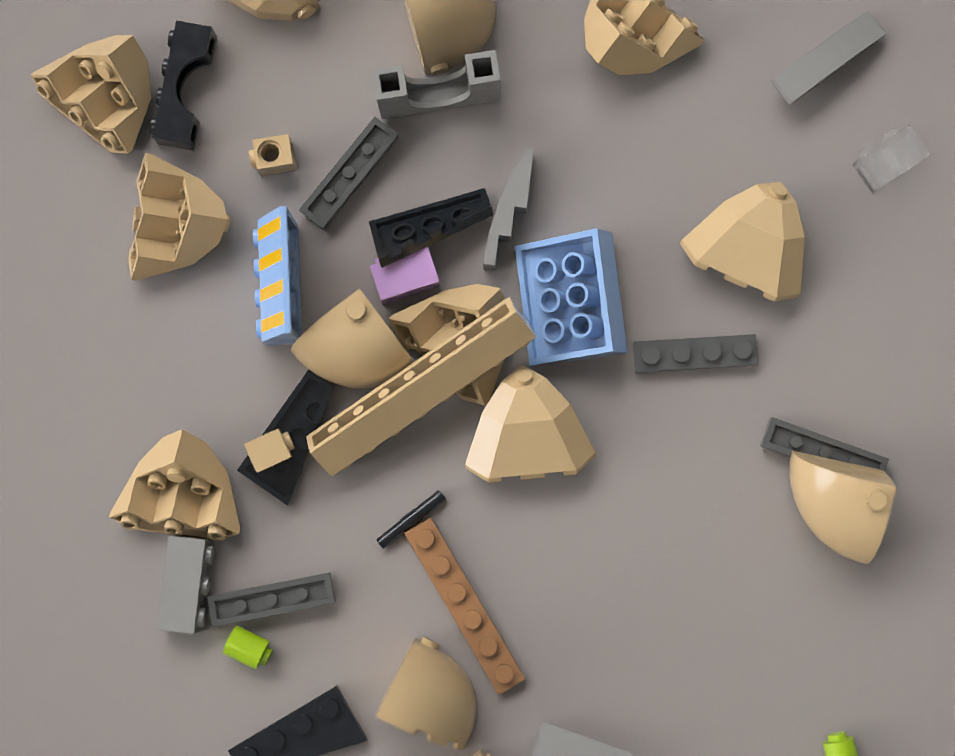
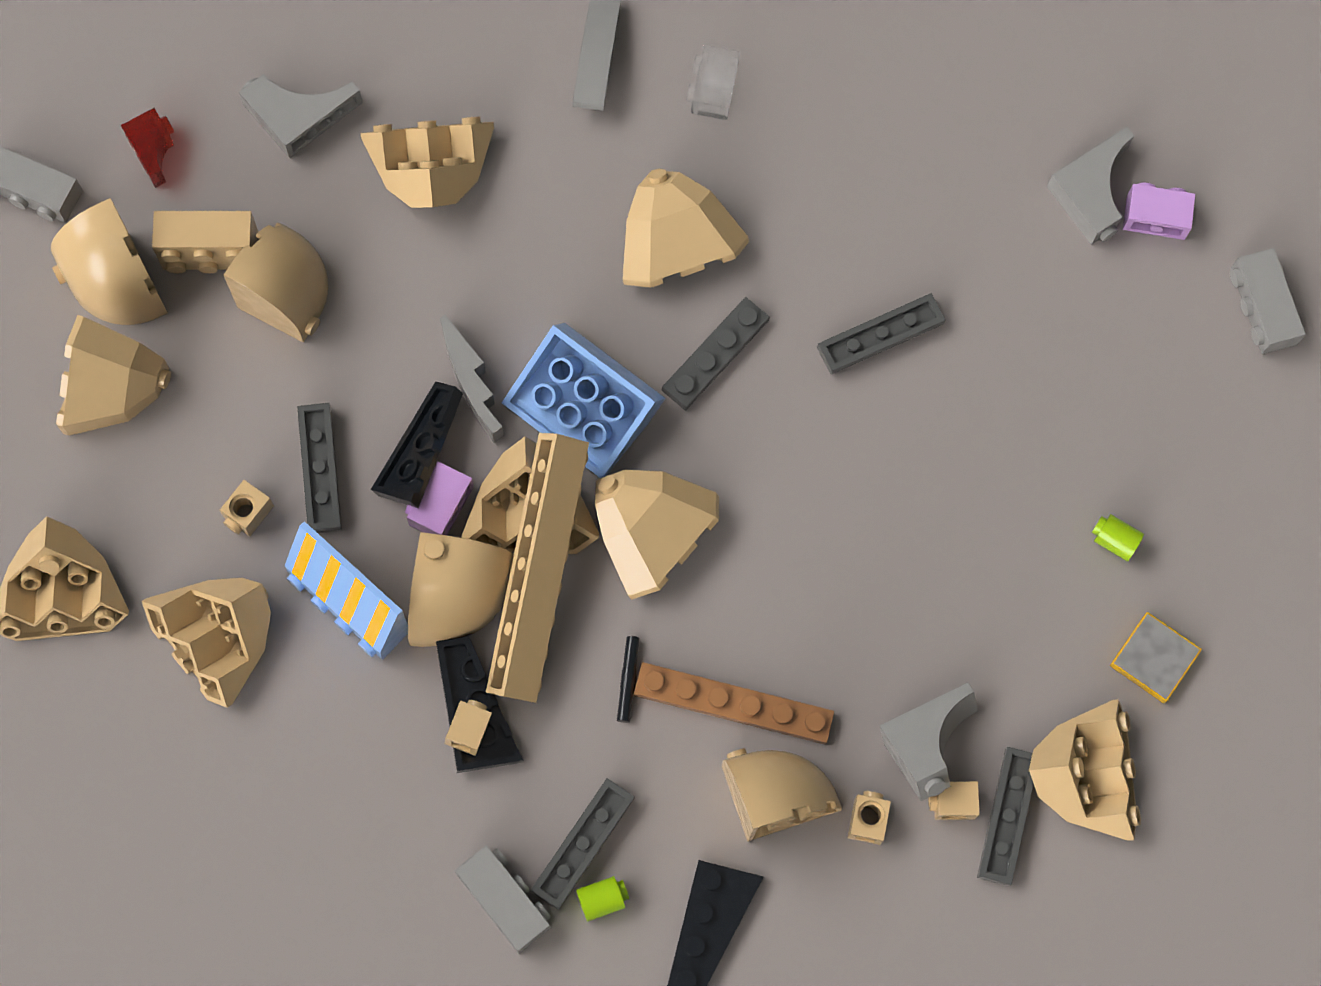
camera: 55 degrees left, 10 degrees down
(179, 492) = (427, 831): tan brick -> none
(190, 49) = (100, 491): black arch -> none
(473, 84) = (354, 305): light grey arch -> none
(842, 503) = (932, 354): tan brick -> none

